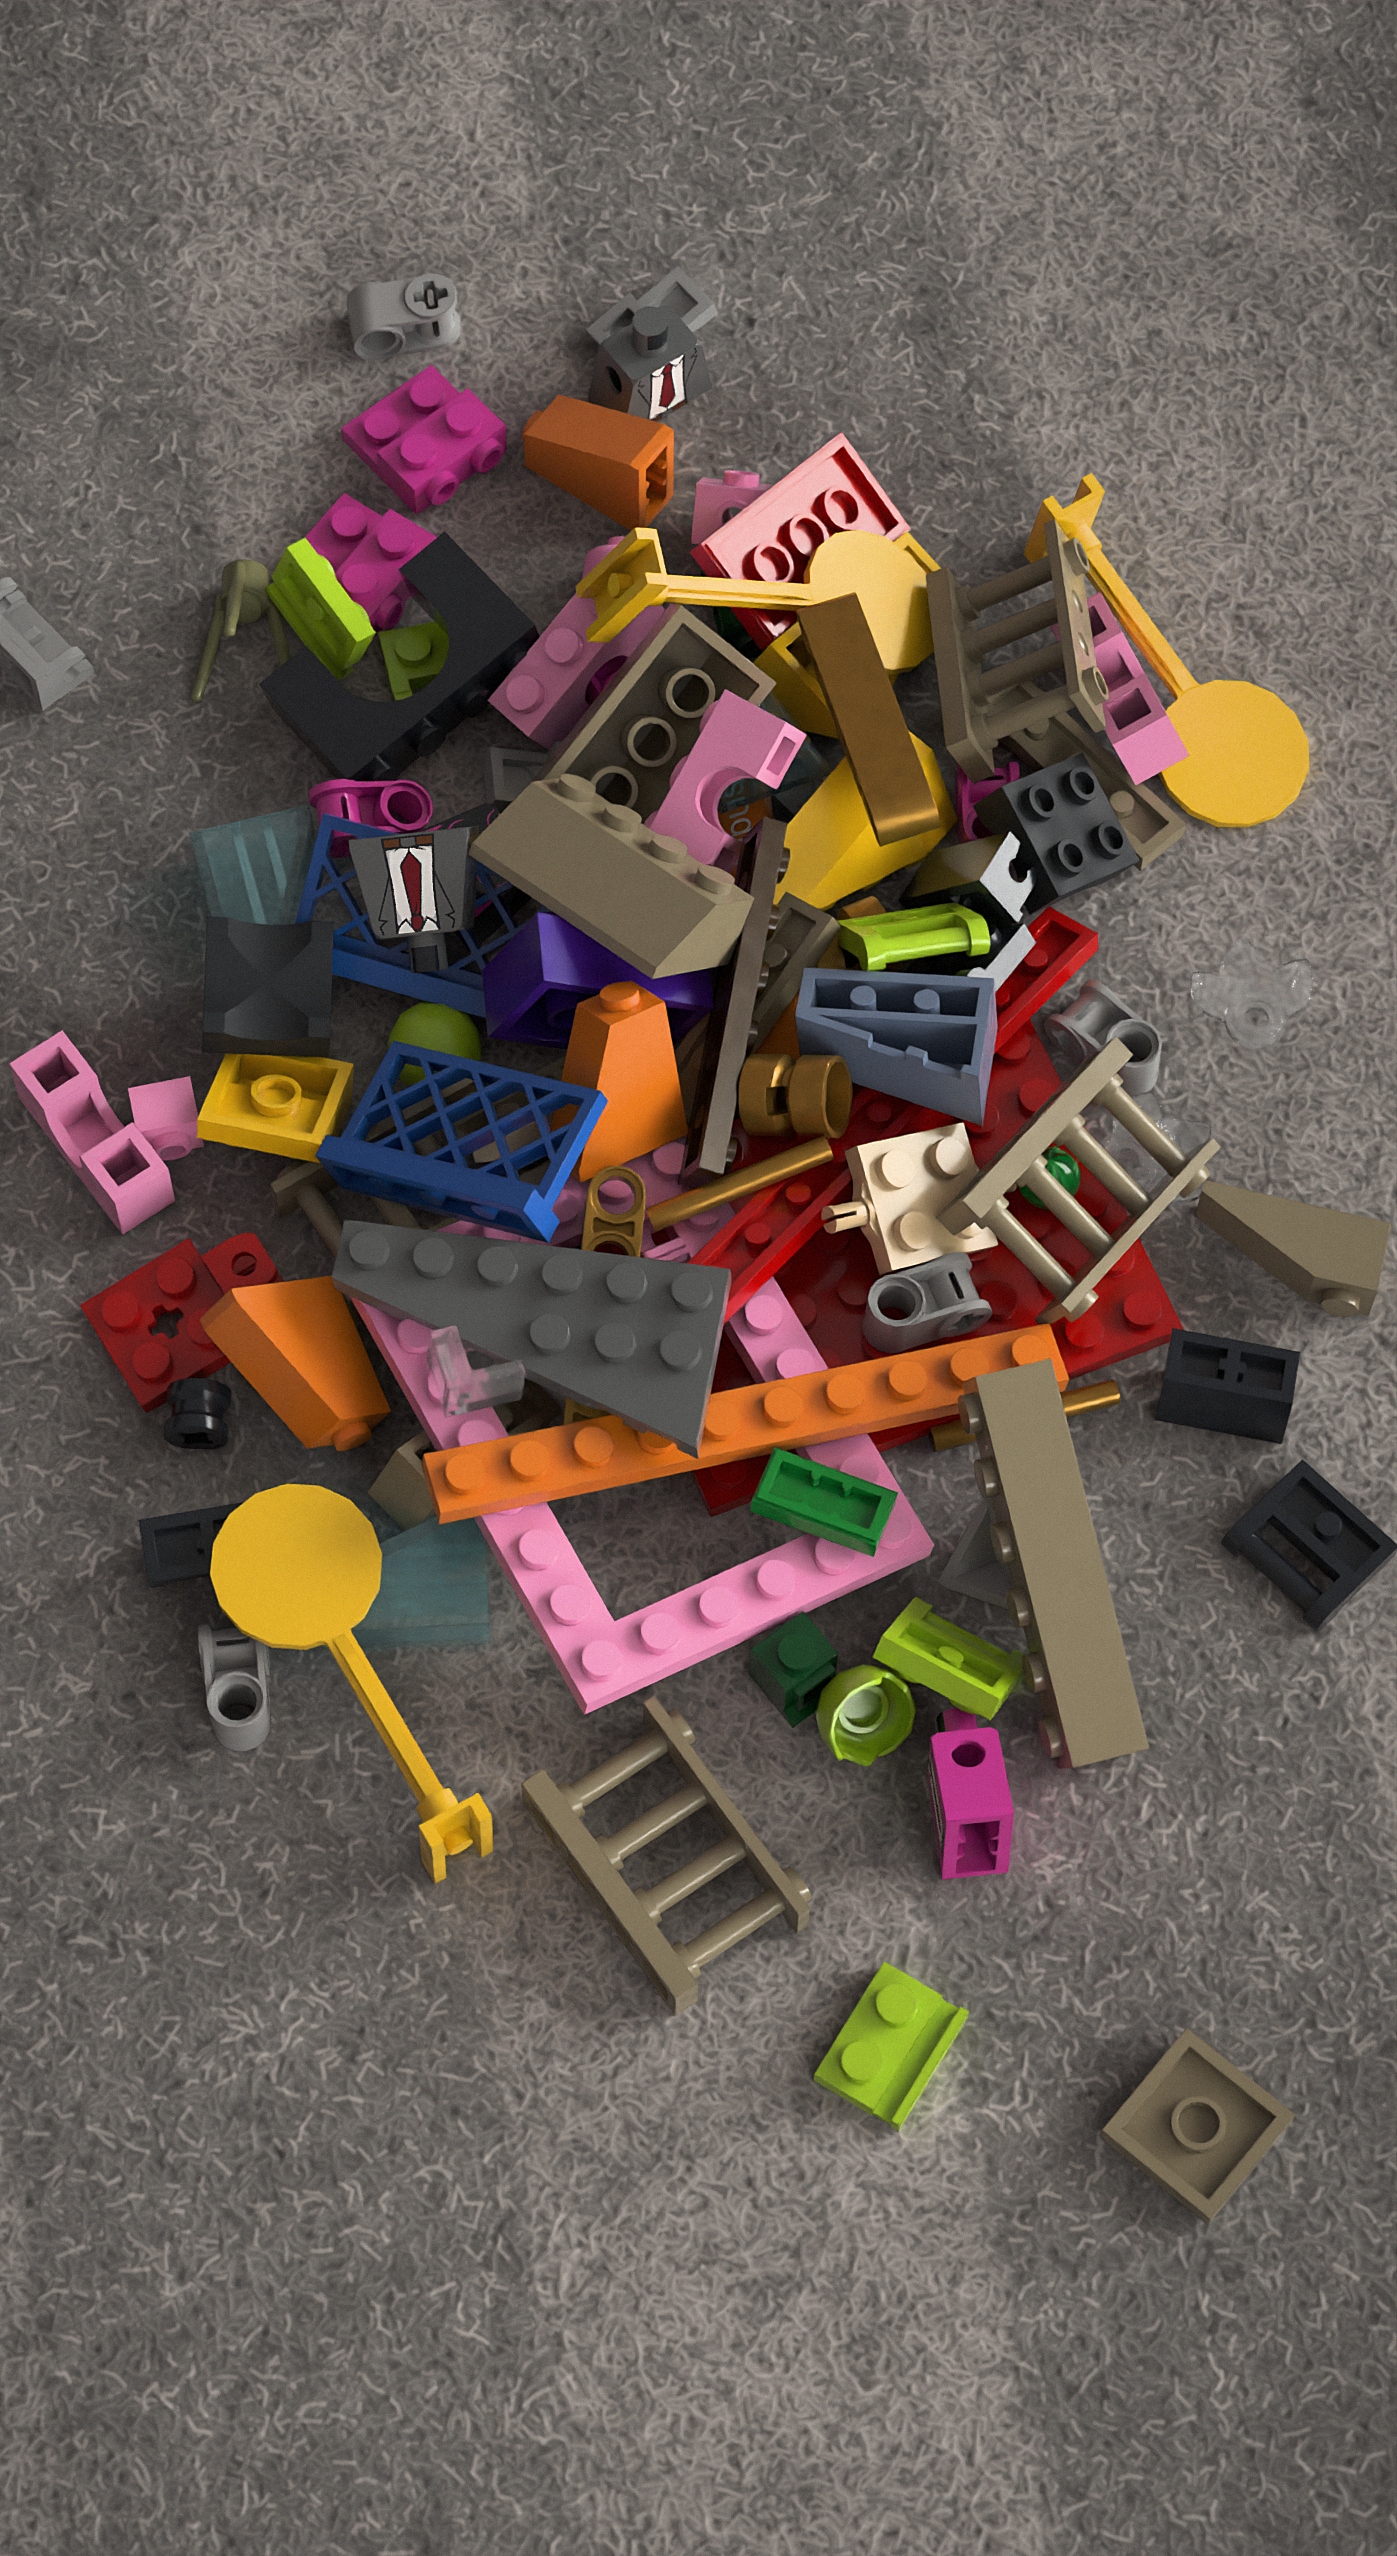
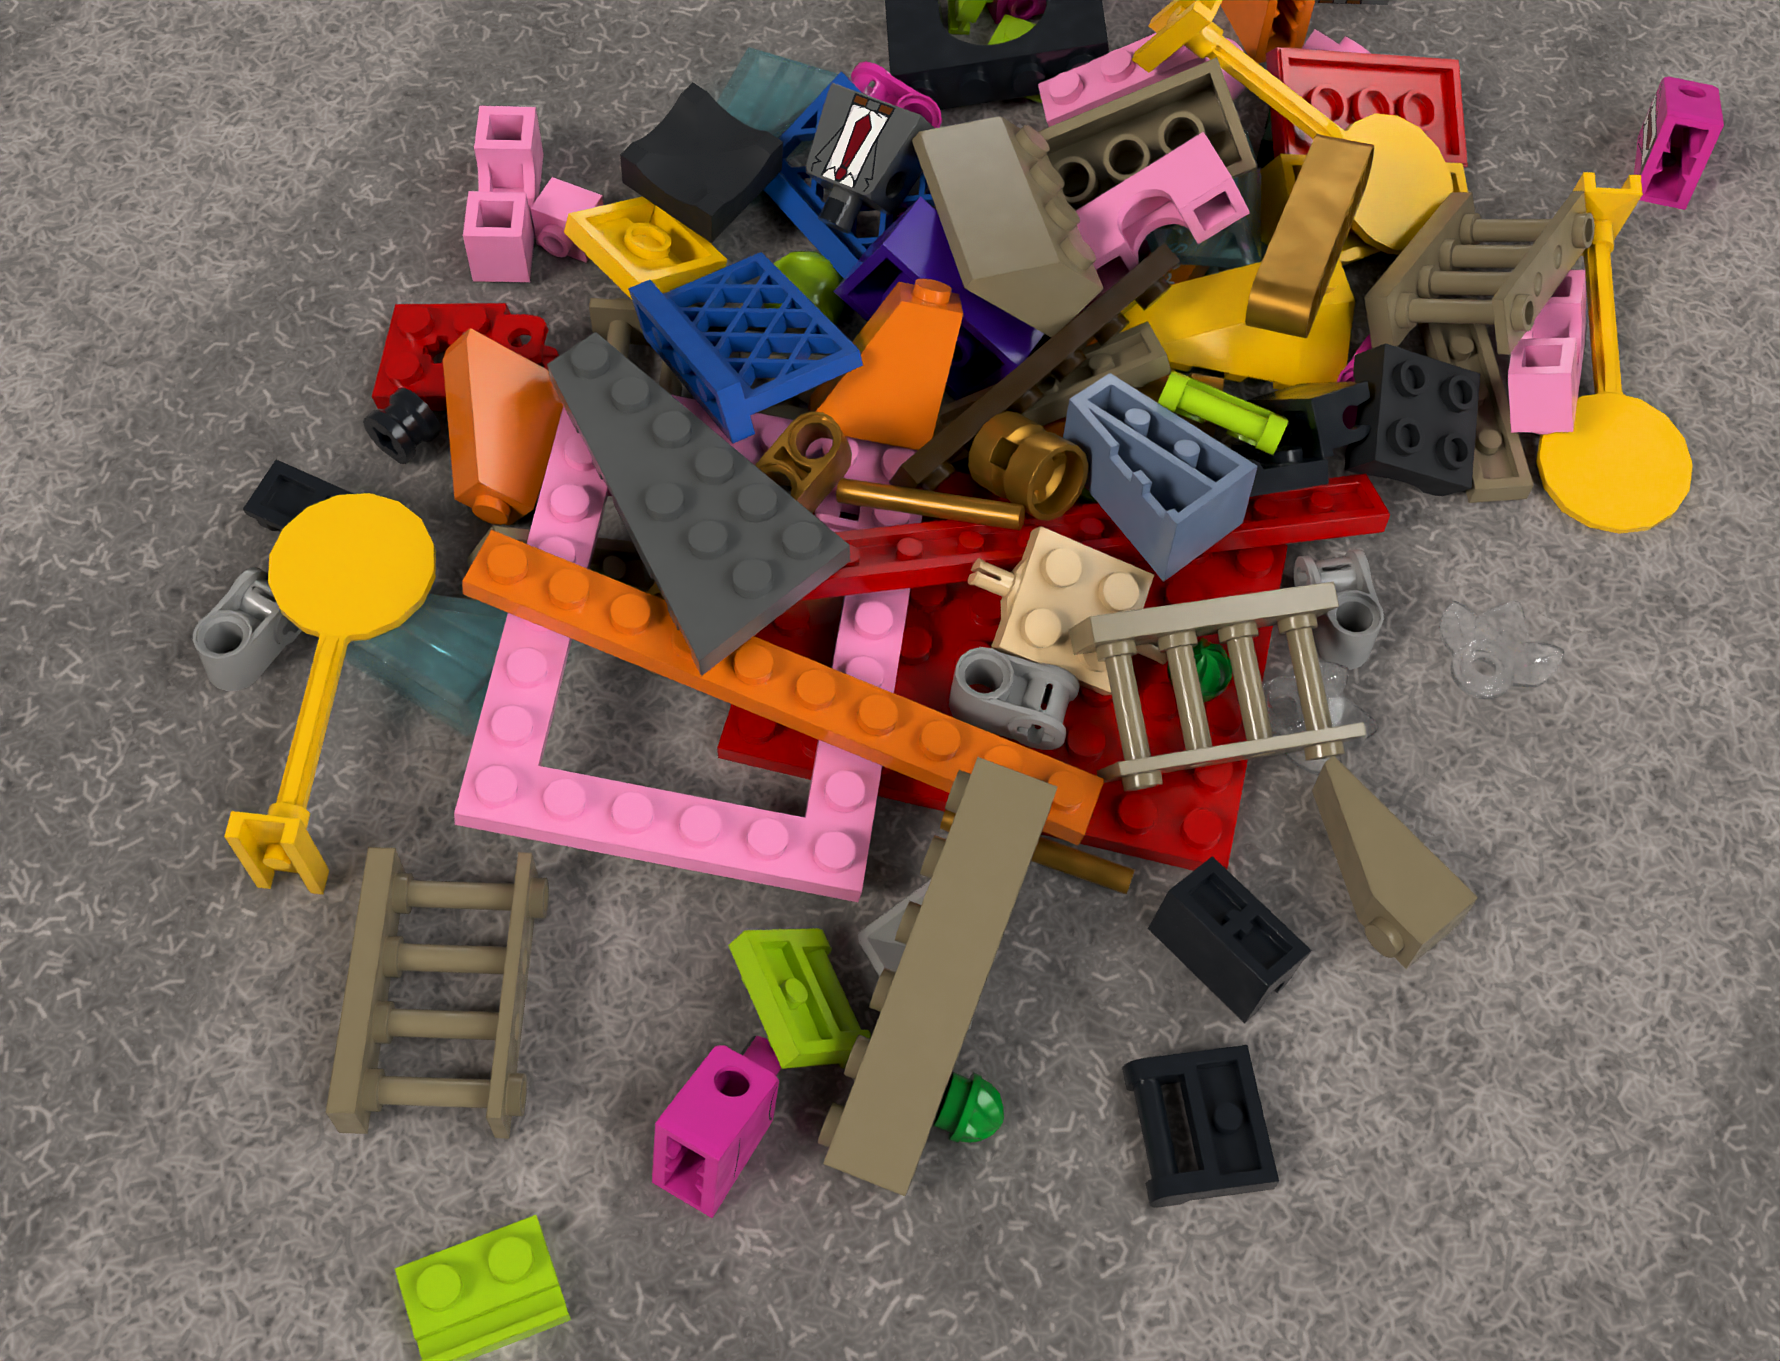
camera: 35 degrees right, 5 degrees down
(469, 1378) = (580, 500): clear panel -> none
(794, 1667) = (671, 917): dark green window -> none
(823, 1502) = (789, 789): green plate -> none
(865, 1713) = (691, 992): lime hair -> none
(1072, 367) = (1682, 121): none -> dark pink torso
(1144, 1651) = (970, 1109): none -> green plate

